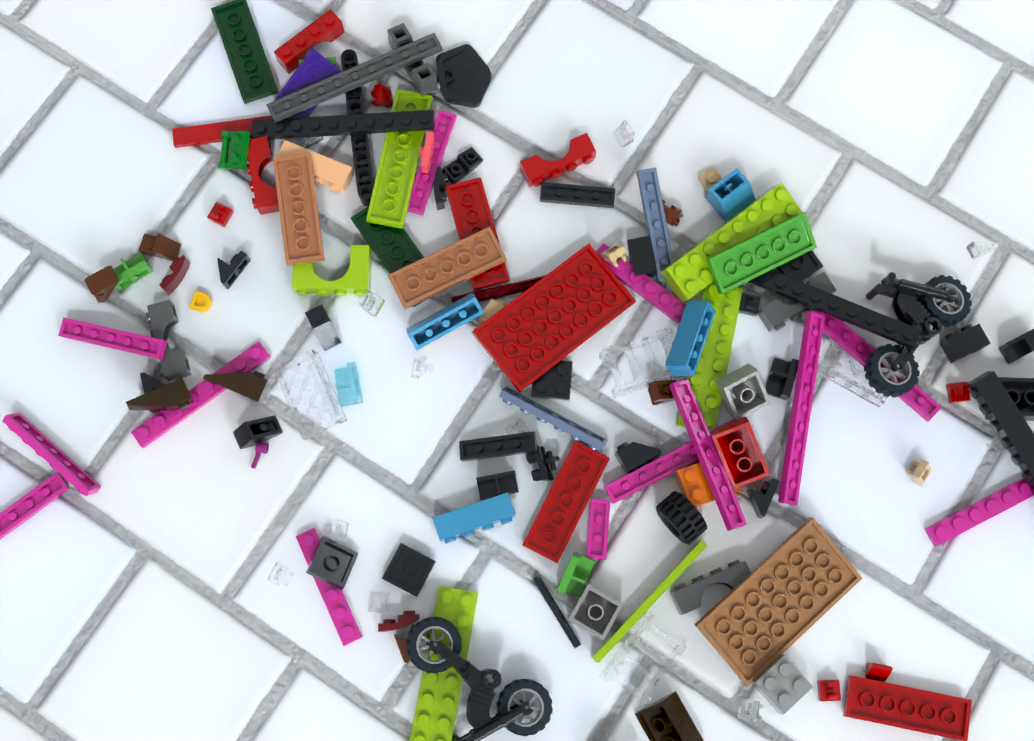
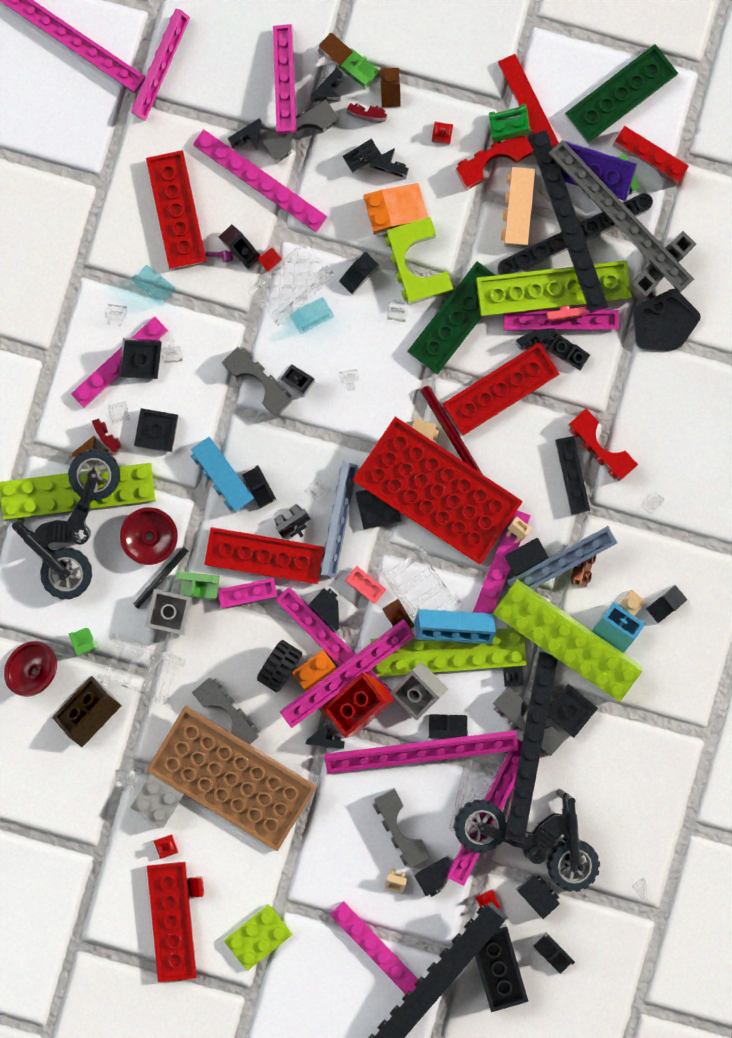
camera: 75 degrees right, 10 degrees up
(137, 302) = (325, 90): none -> black slope
(165, 398) = (243, 153): dark brown slope -> none
(199, 482) = (176, 210): none -> red plate
(200, 302) = (348, 144): yellow tile -> none
(213, 290) = (361, 155): none -> black hips
(243, 383) = (280, 216): dark brown slope -> none
(264, 528) = (153, 285): none -> clear light blue panel
(272, 279) = (394, 207): none -> orange slope
(279, 408) = (269, 258): none -> red slope
(298, 209) = (466, 209): nougat plate -> none
(372, 465) = (240, 364): none -> dark grey arch
(382, 95) = (615, 248): red tile -> none
(406, 416) = (298, 380): none -> black slope
(444, 321) = (400, 386): dark azure brick -> none
(447, 268) = (453, 372): nougat plate -> none
(498, 446) = (294, 475): black plate -> none
(507, 594) = (135, 531): none -> dark red dish
(599, 710) = (83, 641): none -> bright green panel
(623, 413) = (365, 585): none -> coral plate
(649, 601) = (195, 659): lime tile -> none
(720, 151) = (666, 604): none -> black slope
(761, 253) = (562, 671): bright green plate -> none
(892, 445) = (412, 850): none -> dark grey arch
(923, 434) = (433, 877): none -> black slope
(942, 625) = (258, 937): none -> lime plate

